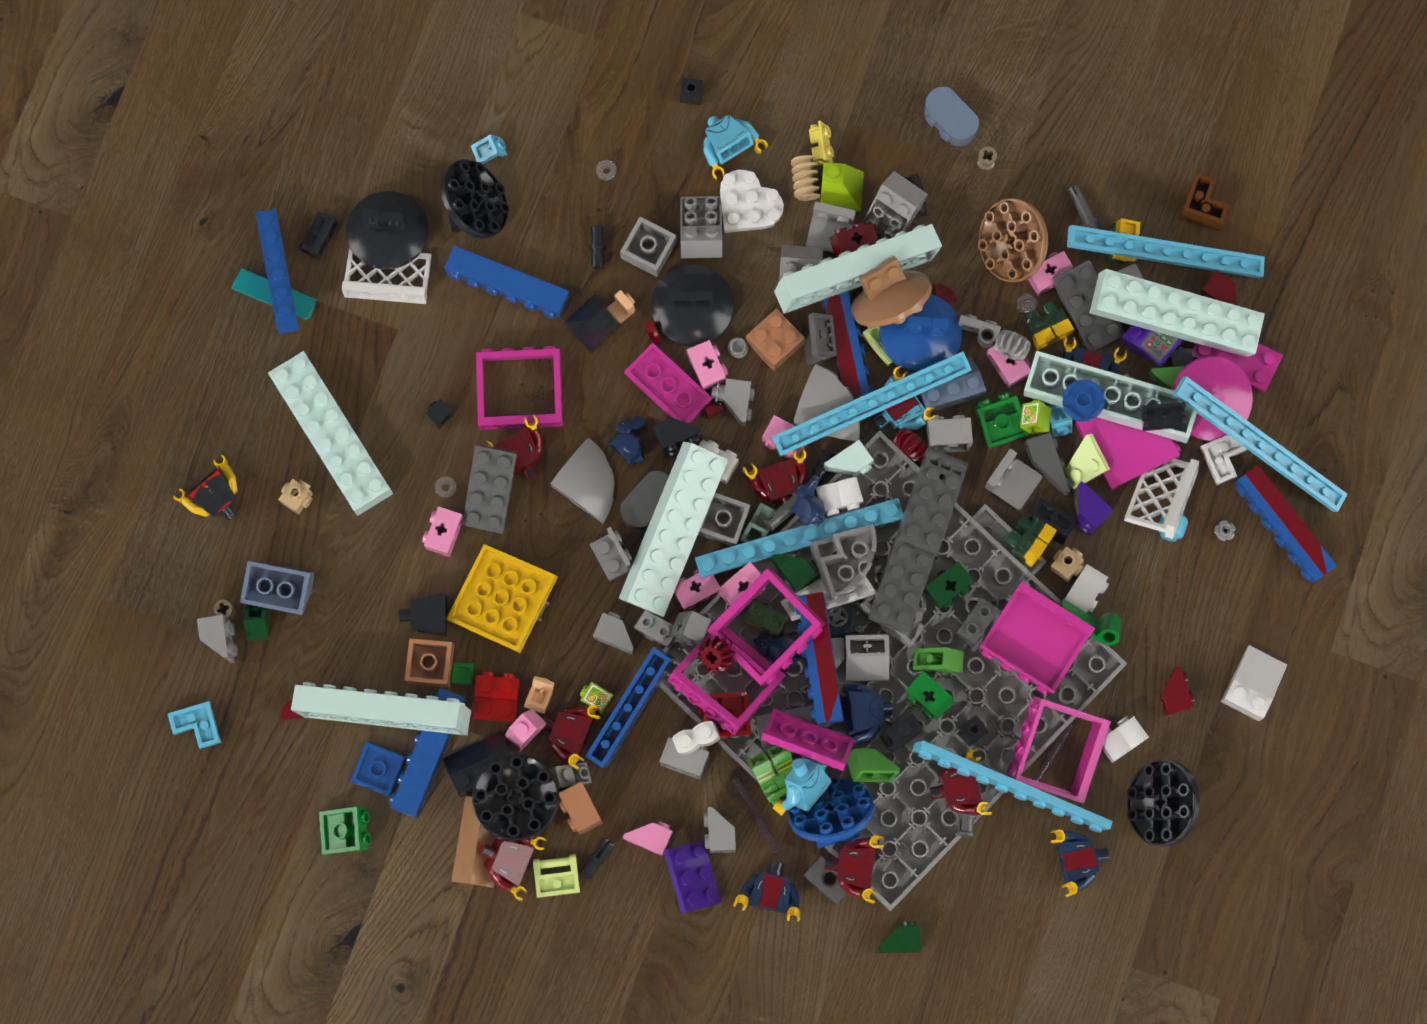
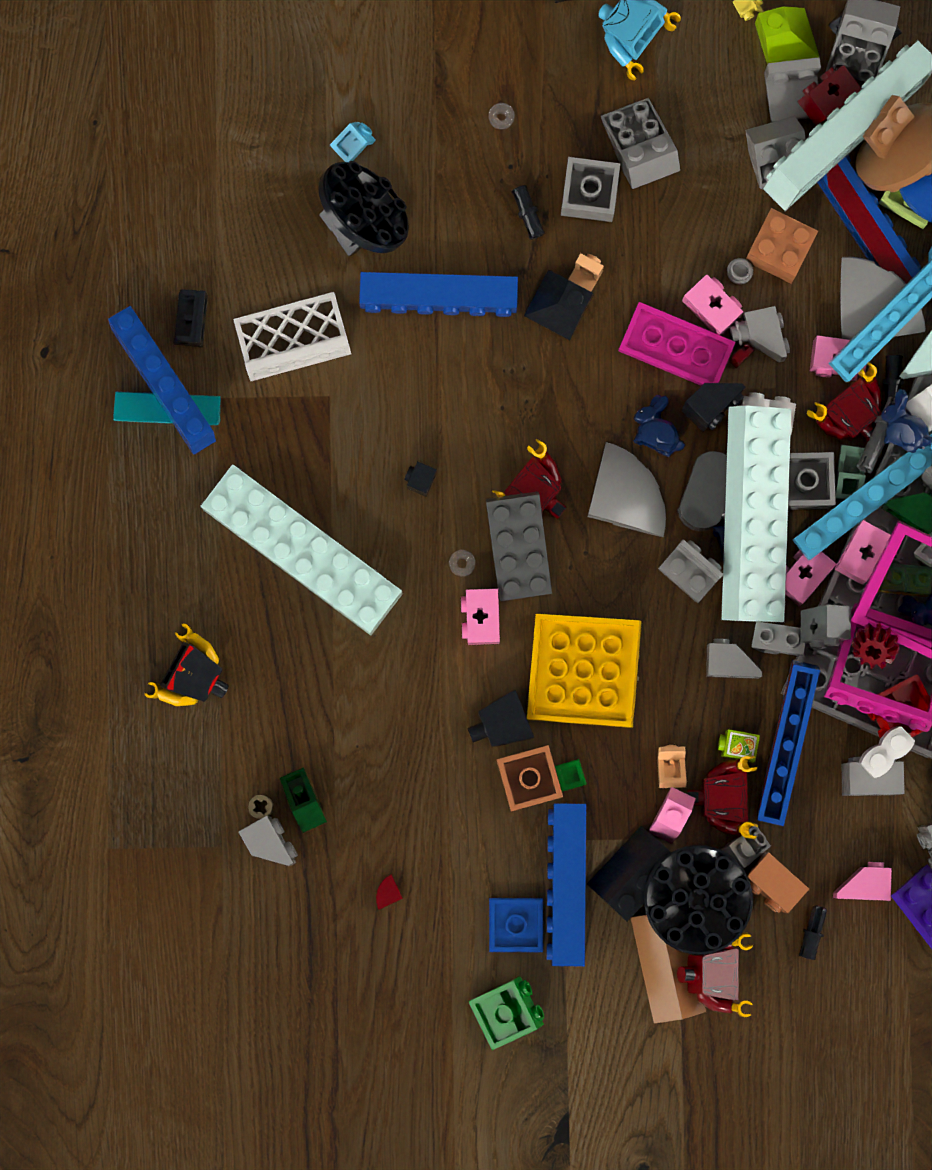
camera: 25 degrees left, 5 degrees up
(199, 718) = (285, 946): medium azure plate -> none
(276, 587) = (313, 756): sand blue slope -> none
(294, 502) = (291, 649): tan brick -> none
(381, 709) = (499, 856): light aqua brick -> none
(387, 230) = (271, 282): black bracket -> none
(496, 697) = (621, 789): red plate -> none
(516, 422) = (516, 454): dark pink window -> none
(556, 883) = (780, 977): yellowish green plate -> none
(652, 333) = (633, 290): dark red tile -> none
(692, 305) = (667, 240): black bracket -> none
(748, 204) = (684, 95): white plate -> none
(803, 178) = (740, 41): tan piece -> none
(819, 338) = (835, 226): dark grey bracket -> none

